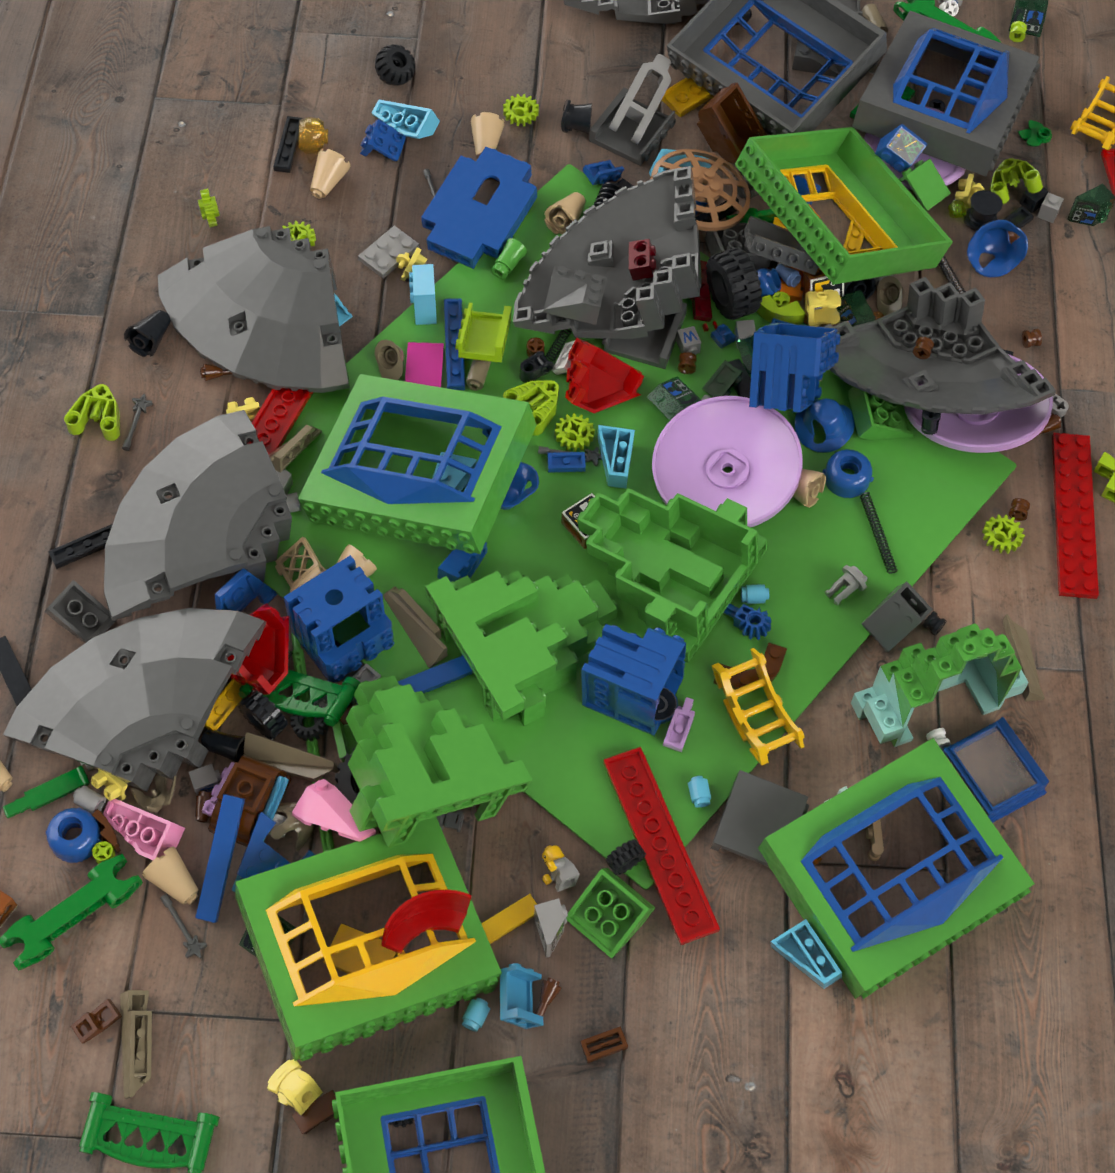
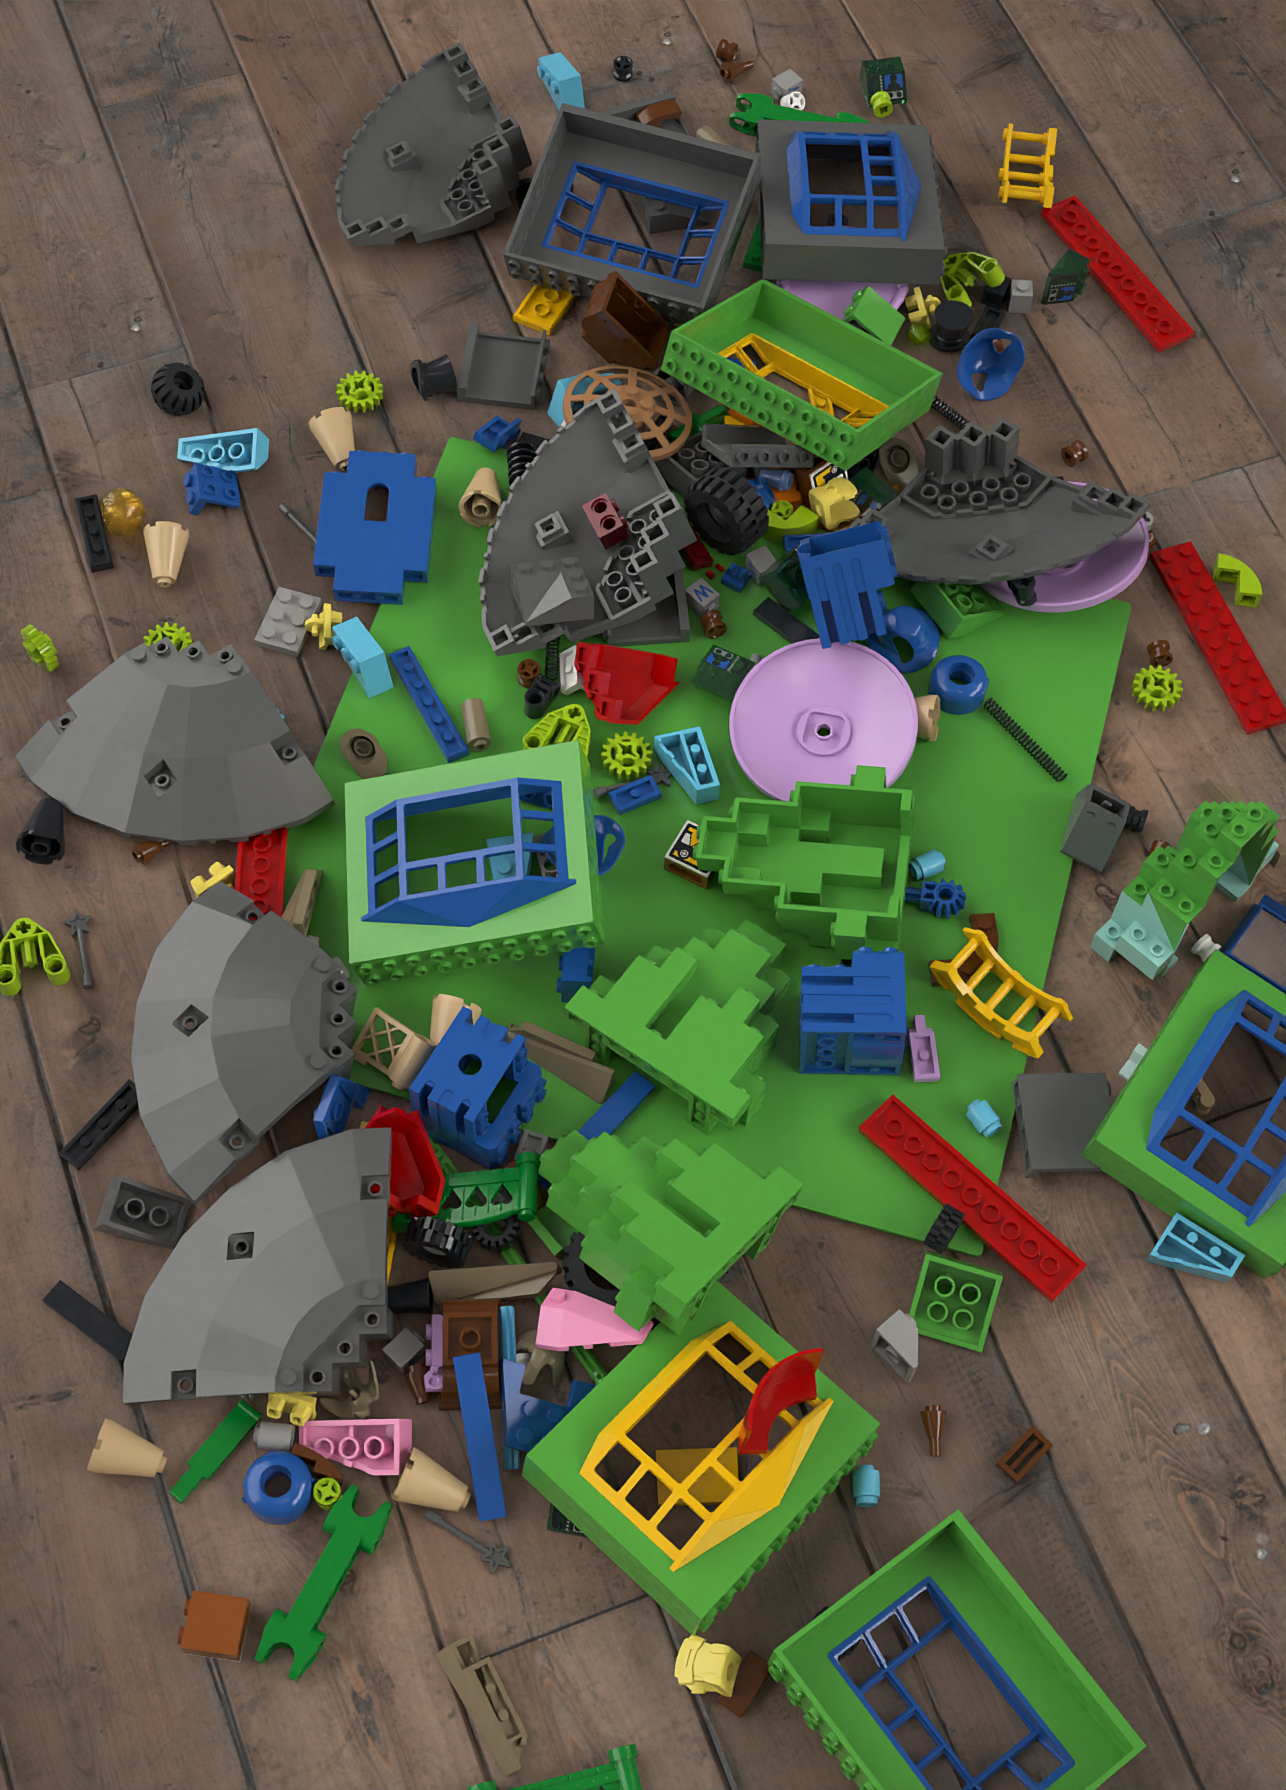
camera: 25 degrees left, 0 degrees up
(96, 1022) = (424, 1700): reddish brown slope -> none
(424, 363) = (406, 742): dark pink tile -> none
(483, 334) = (463, 679): lime panel -> none
(509, 258) = (442, 576): bright green plant -> none
(509, 918) = (848, 1353): yellow tile -> none
(517, 996) = (905, 1445): dark azure panel -> none
(562, 870) = (875, 1274): light grey piece -> none
(637, 113) = (495, 346): light grey piece -> none
(723, 380) = (766, 630): dark green bracket -> none
(852, 578) = (1027, 804): light grey piece -> none
(900, 148) = (832, 284): slope -> none
(923, 348) = (970, 508): reddish brown wheel -> none
(1035, 134) = (960, 216): green plate -> none

